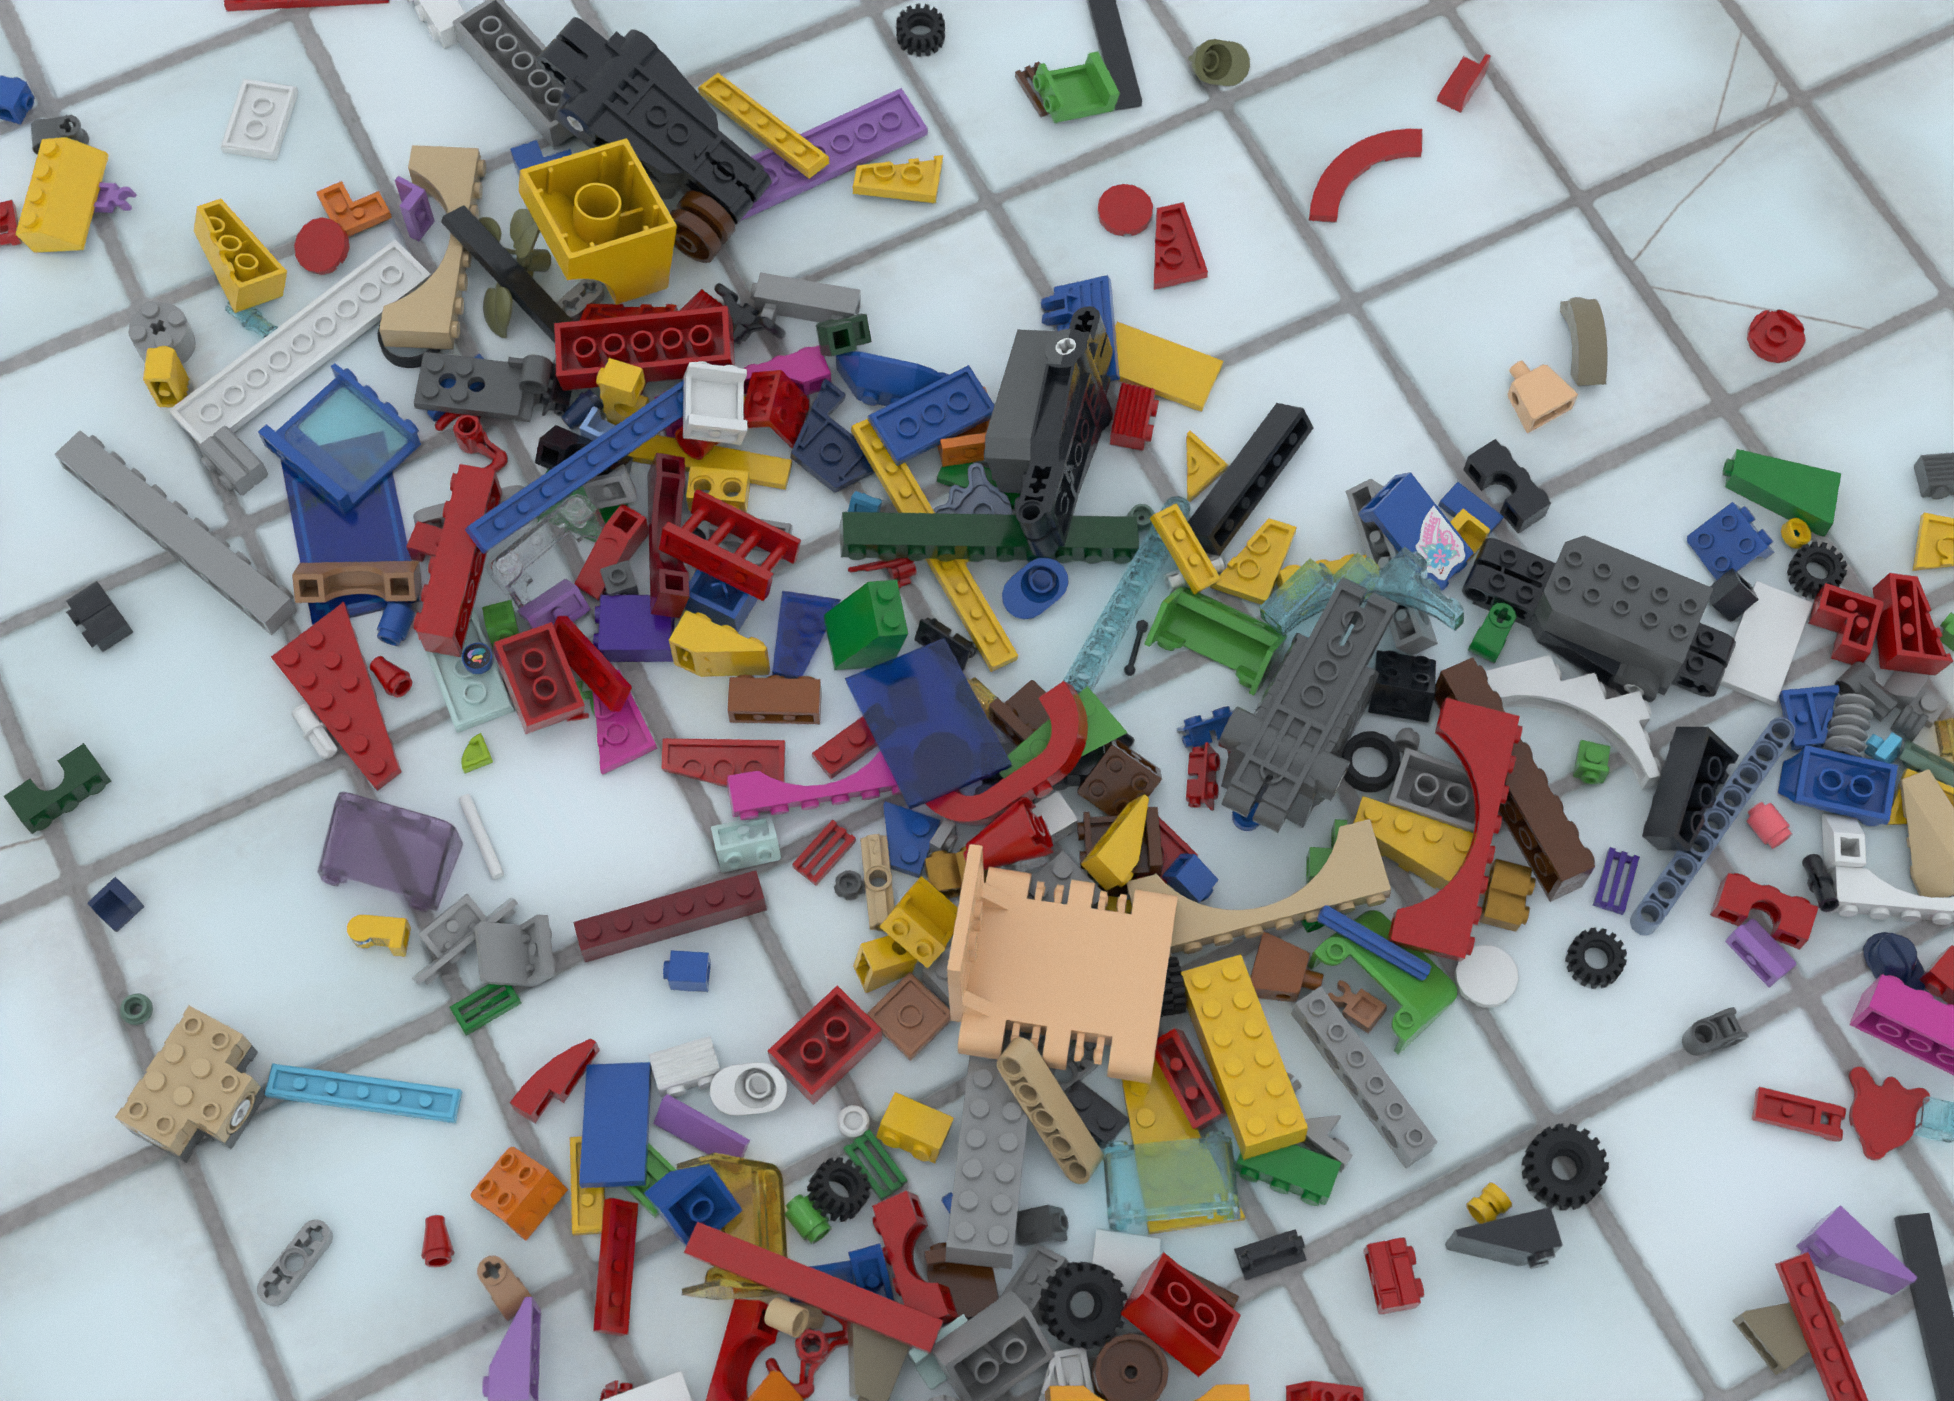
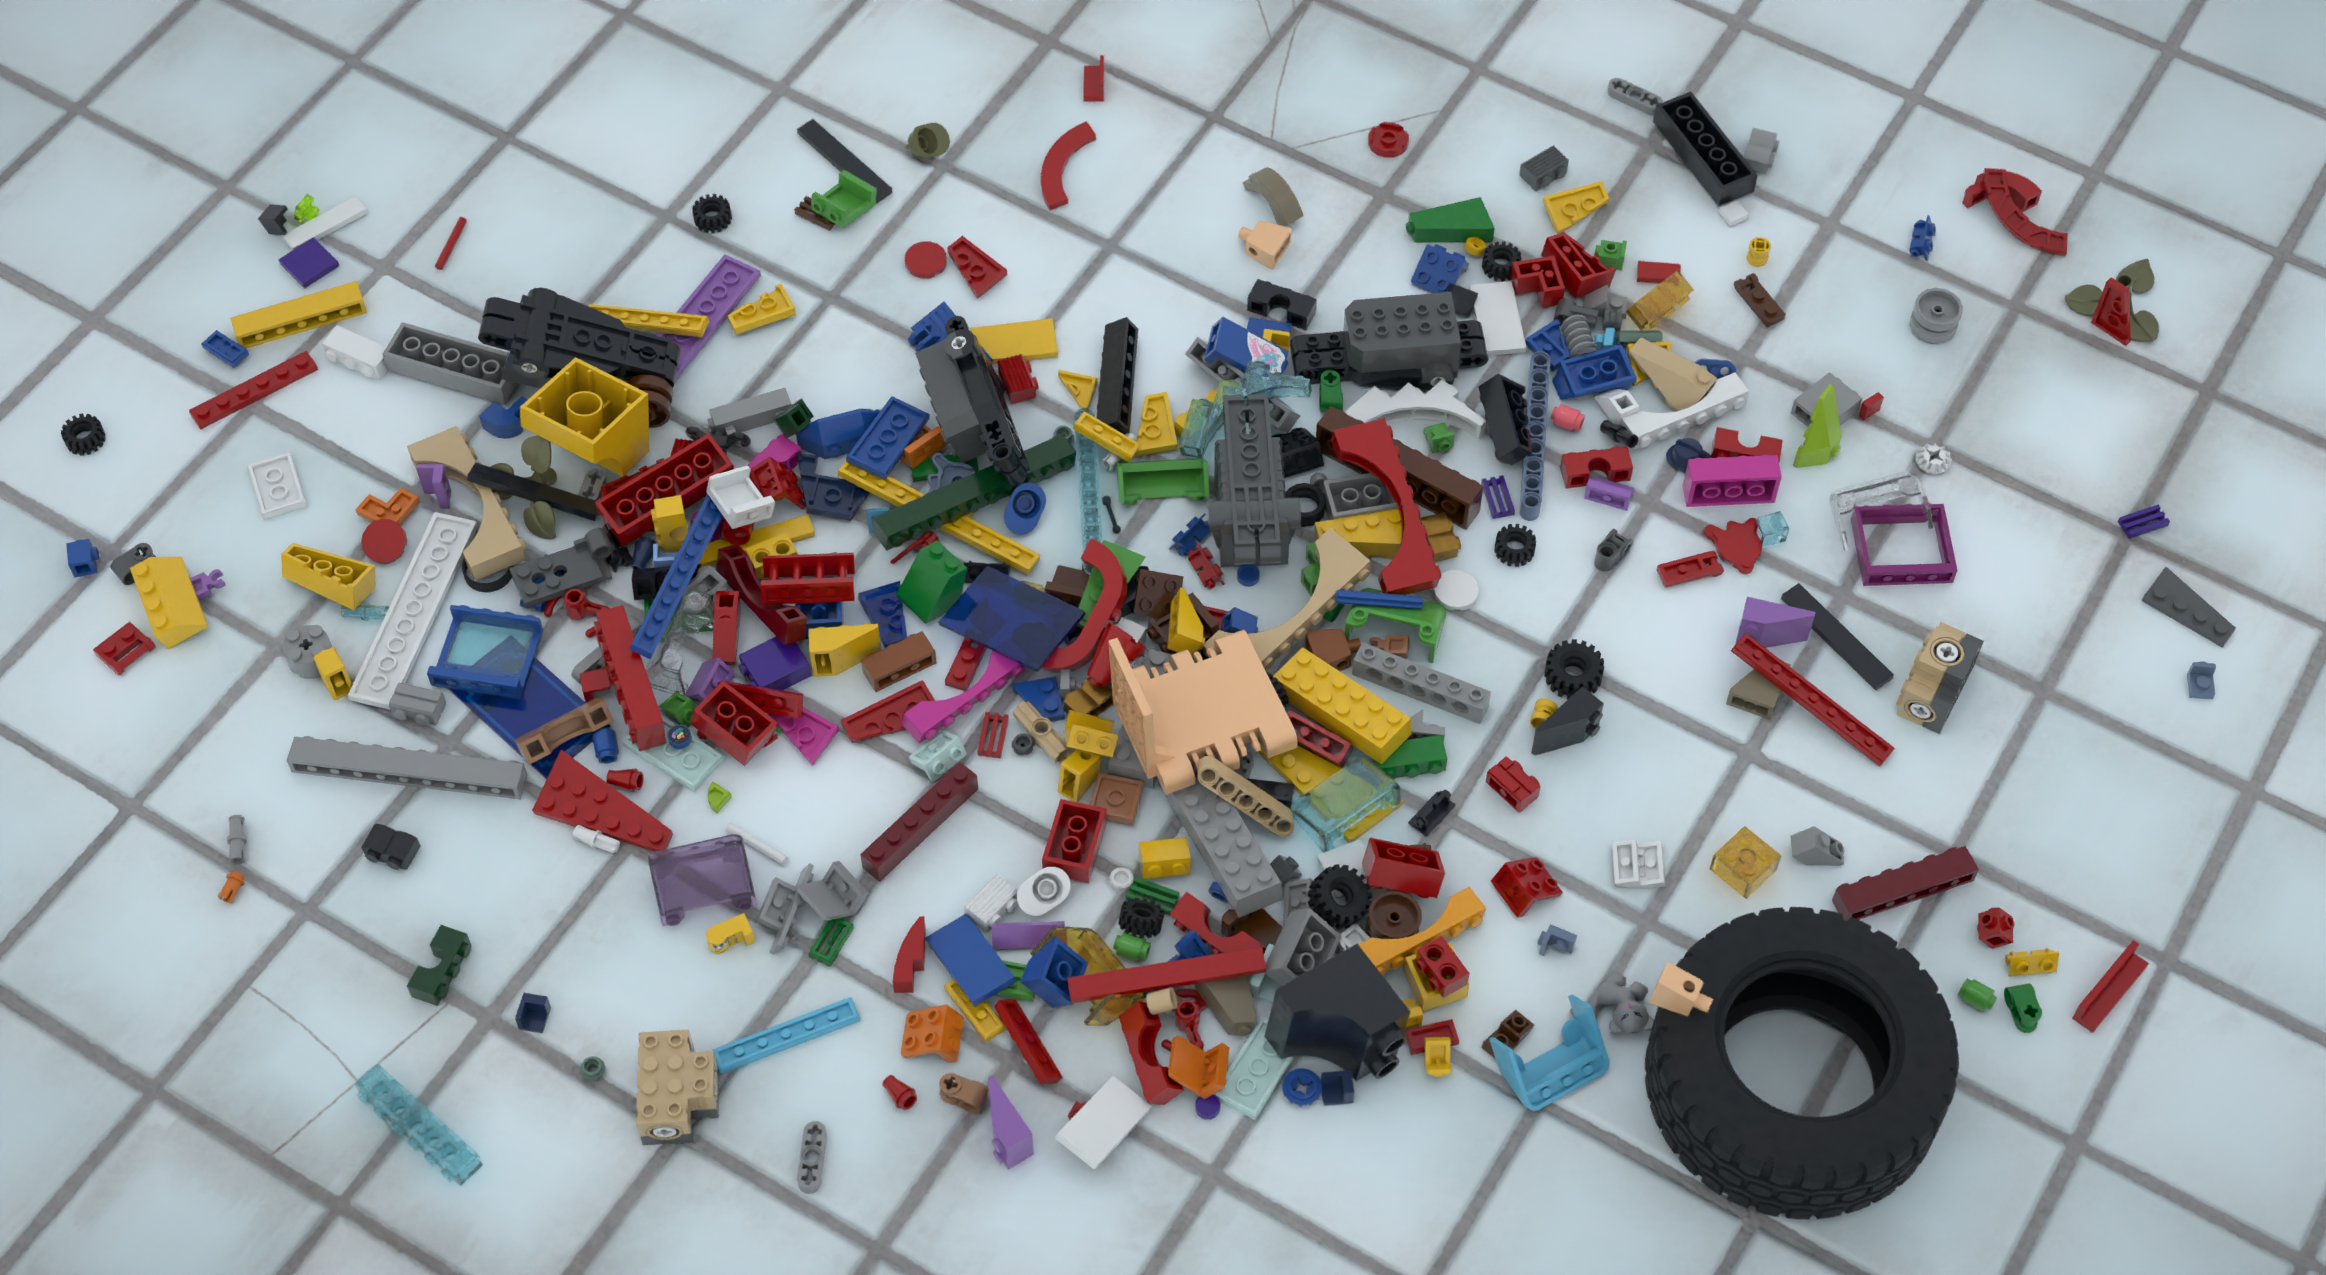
camera: 30 degrees left, 10 degrees down
(619, 579) = (745, 638): dark grey bracket -> none
(688, 971) = (954, 847): blue brick -> none

